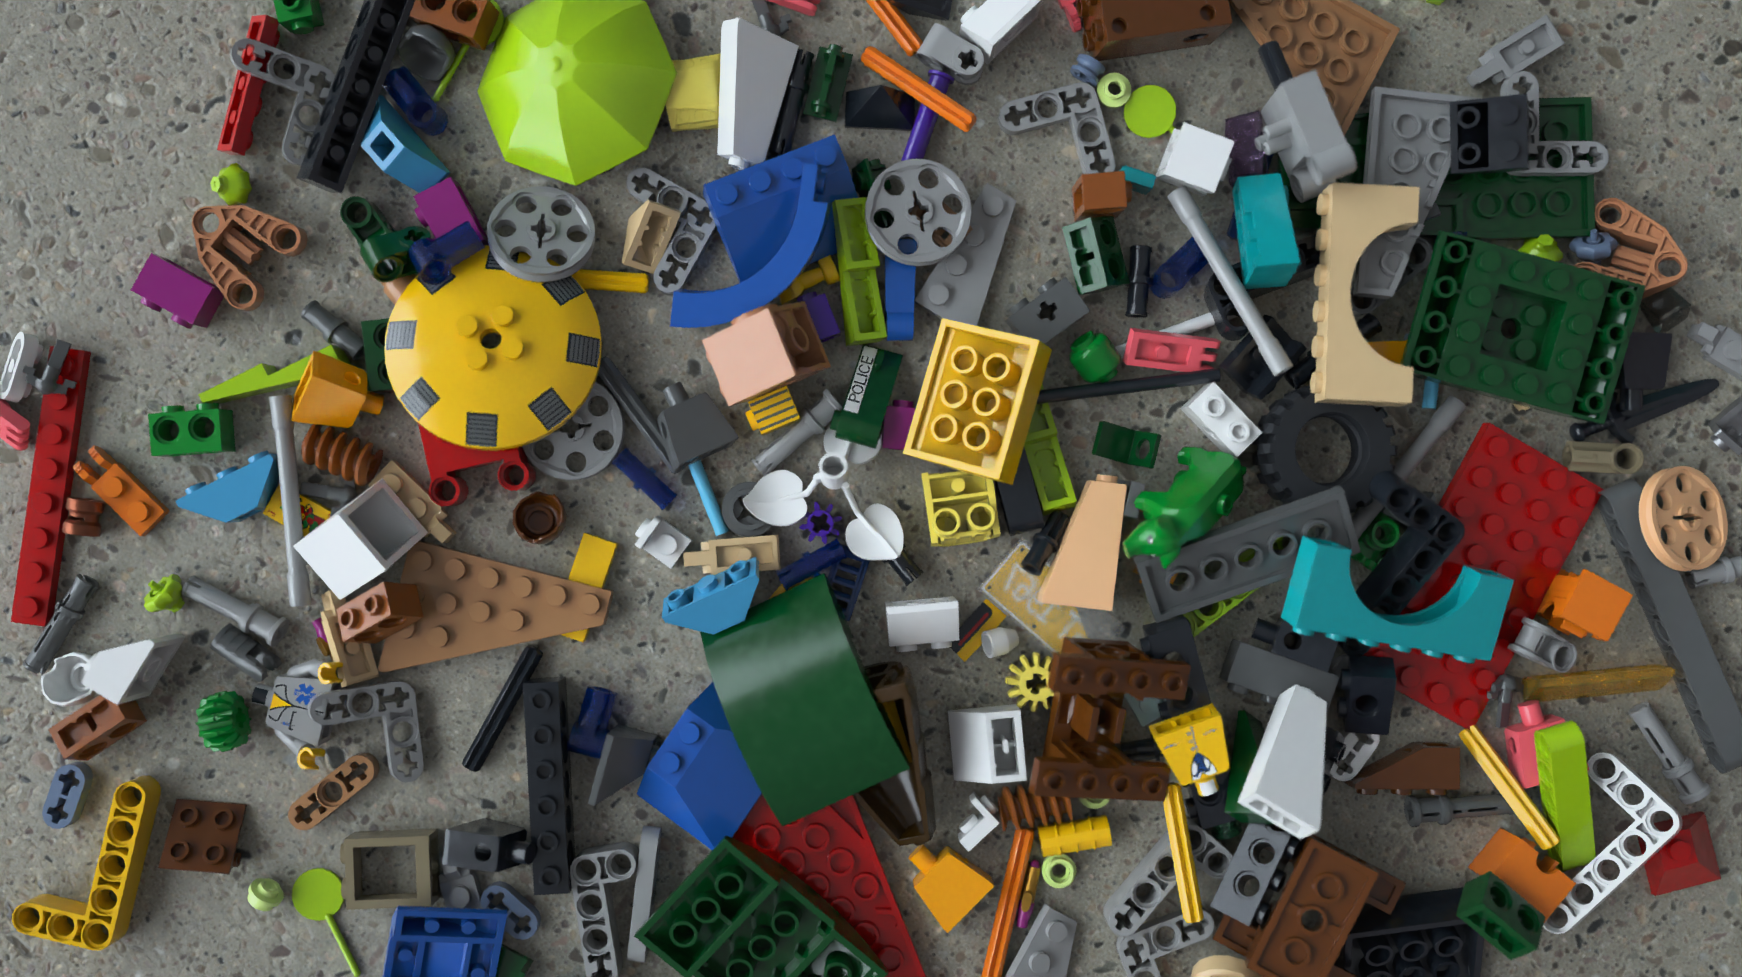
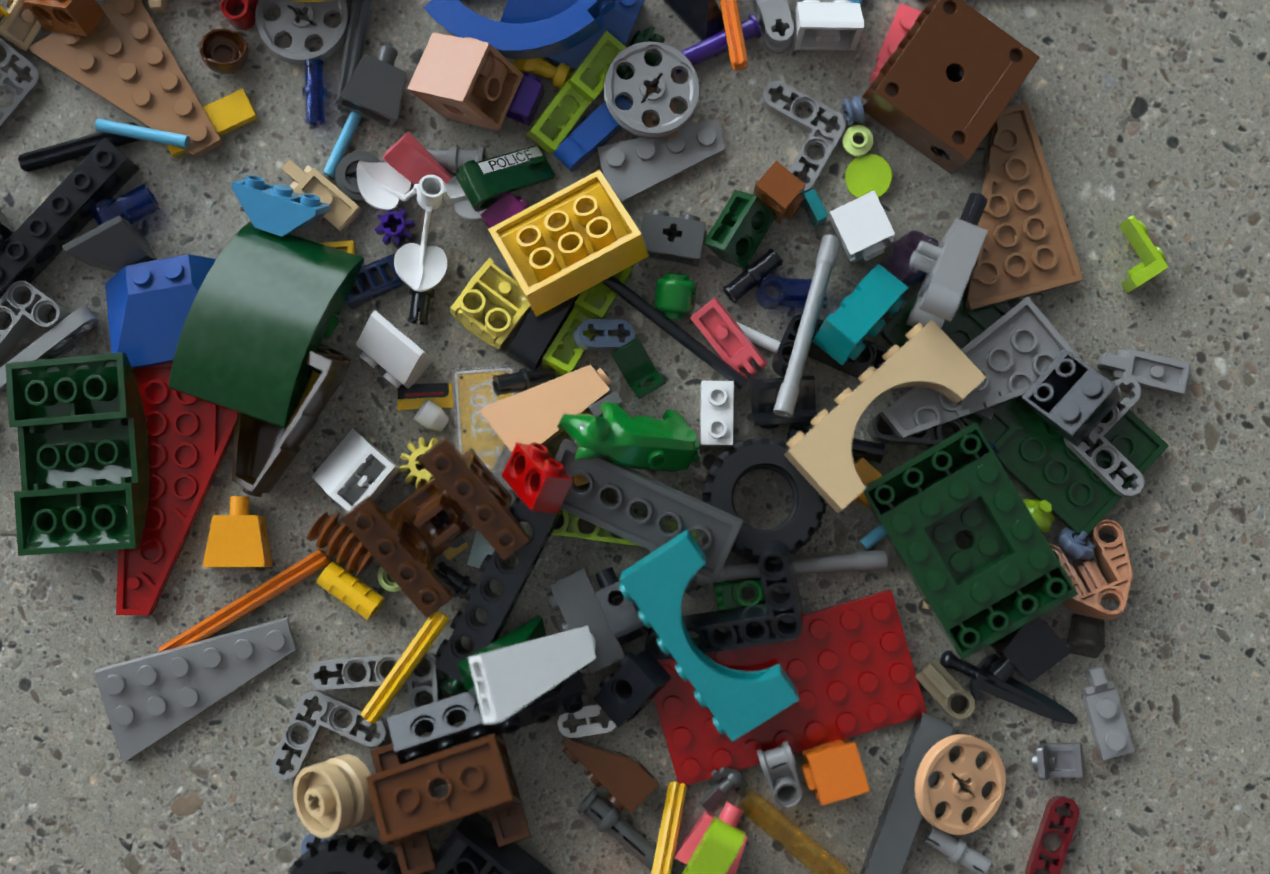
camera: 50 degrees right, 5 degrees down
(545, 649) = (142, 133): none -> medium azure bar
(662, 540) = (285, 140): white bracket -> none
(772, 411) = (436, 127): yellow brick -> none
(788, 457) = (414, 160): none -> coral slope
(811, 564) = (361, 245): clear blue pin -> none
(976, 828) = (293, 520): white bracket -> none
(1026, 903) = (282, 601): pearl gold piece -> none
(1062, 880) = (309, 608): yellowish green plate -> none
(1065, 439) = (603, 327): none -> sand blue beam
(1146, 611) = (537, 477): none -> red brick
(1194, 747) = (477, 599): yellow torso -> none

